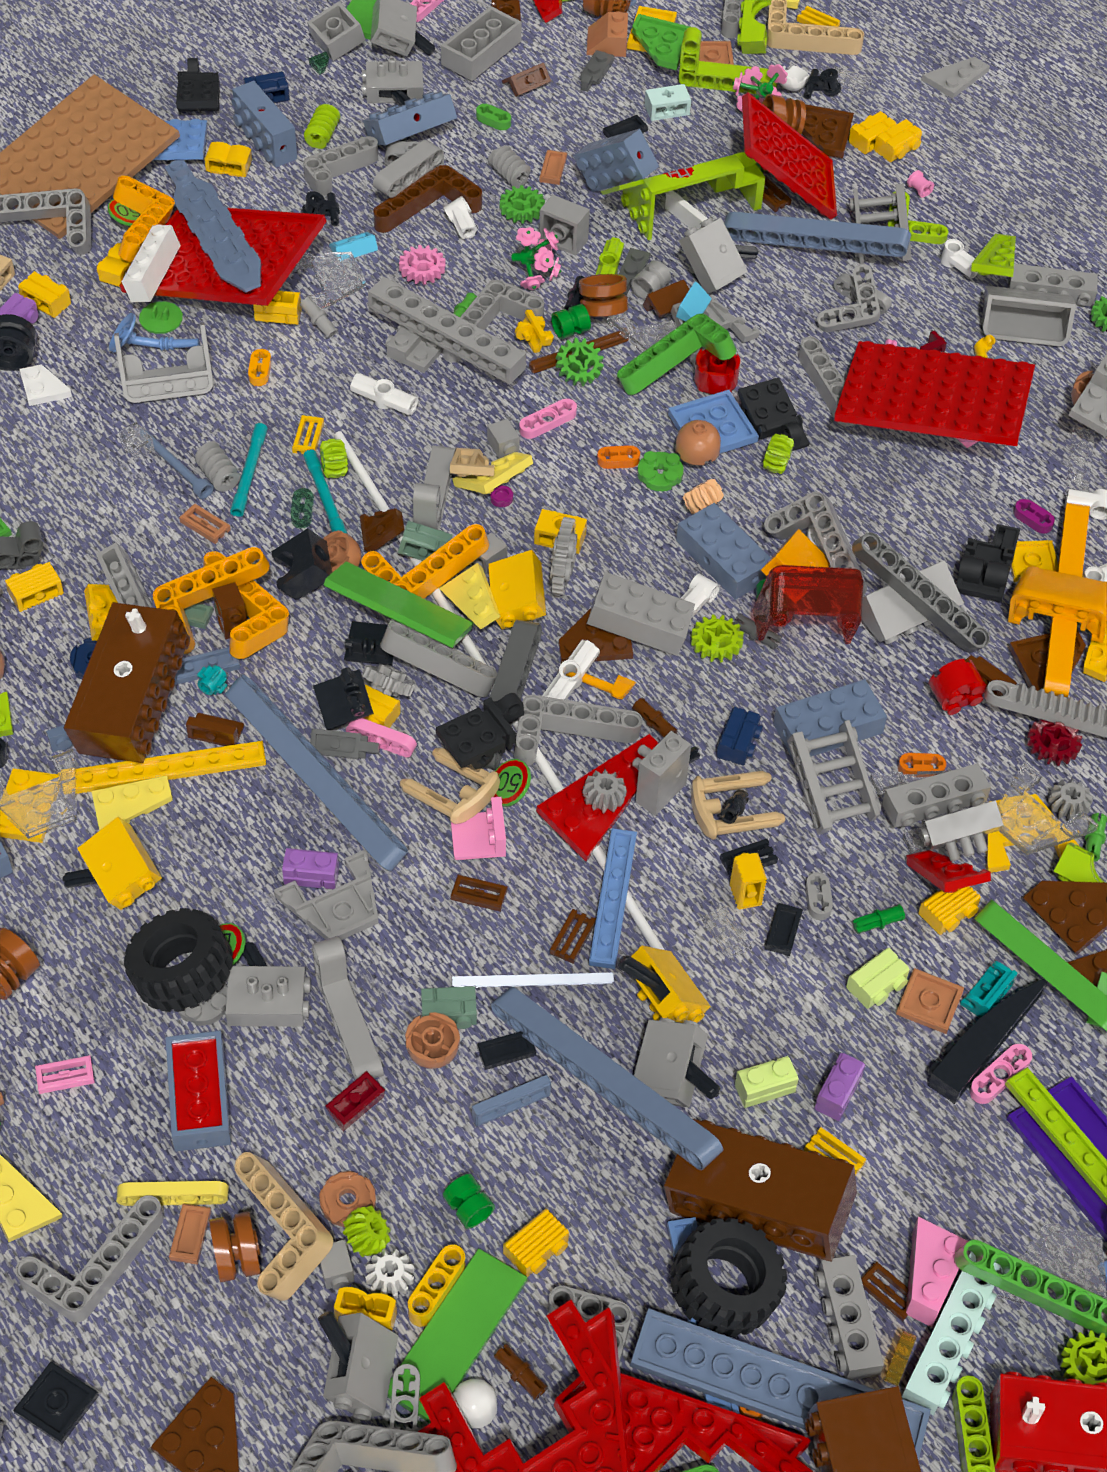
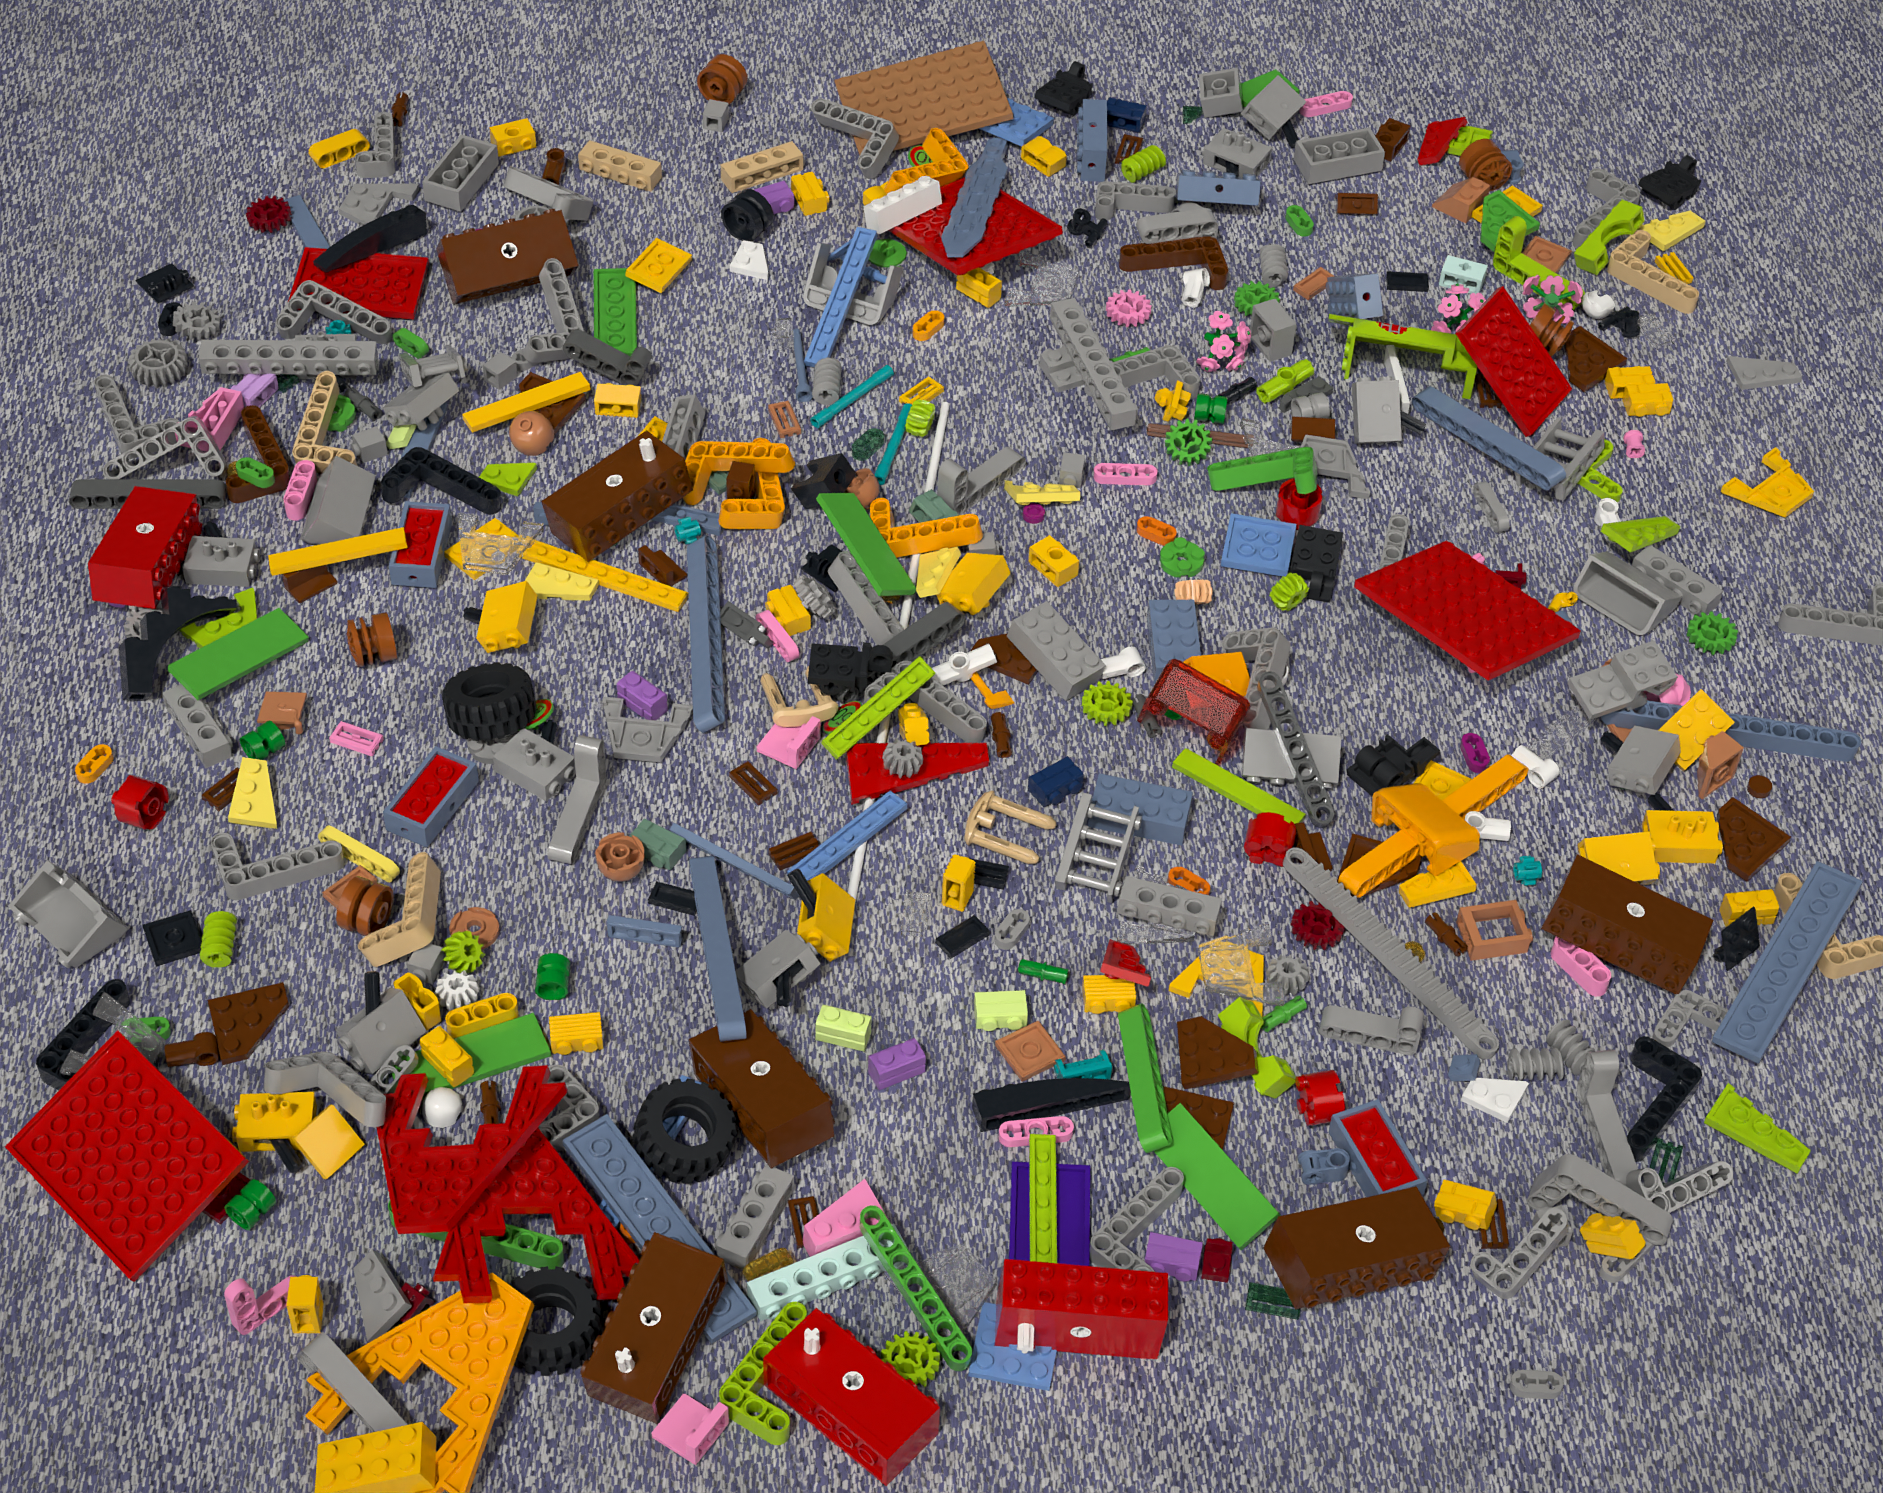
camera: 35 degrees right, 5 degrees down
(107, 1376) = (218, 939): none -> lime piece
(168, 379) = (841, 296): none -> medium blue plate
(298, 130) = (1119, 158): none -> reddish brown tile
(318, 317) = (1005, 308): light grey pin -> none
(343, 699) = (766, 590): black hinge -> none
(355, 1100) = (534, 867): dark red slope -> none
(357, 244) = (1090, 269): medium azure slope -> none
(380, 528) = (910, 487): reddish brown wing -> none
(384, 394) = (1006, 391): white piece -> none
(445, 1349) = (446, 1056): none -> yellow brick
(470, 462) = (1025, 473): tan wing -> none
(542, 756) = (878, 708): none -> lime tile
(563, 556) = (1028, 575): light grey gear -> none
(582, 754) = (913, 724): none -> yellow brick
(595, 69) = (1426, 222): dark grey hinge -> none
(604, 294) = (1253, 399): dark orange wheel -> none
(663, 771) = (963, 770): light grey piece -> none
(694, 302) = (1324, 440): medium azure slope -> none
(697, 136) = (1451, 308): none -> bright pink plant
(698, 442) = (1226, 549): nougat cylinder -> none
(734, 806) = (1001, 827): black pin -> none
(837, 1144) = (847, 1093): yellow tile -> none
(859, 309) = (1473, 515): light grey beam -> none
(883, 655) = (1233, 787): none -> lime tile
(962, 827) = (1159, 934): piece -> none
(1058, 168) = (1779, 493): none -> yellow wing

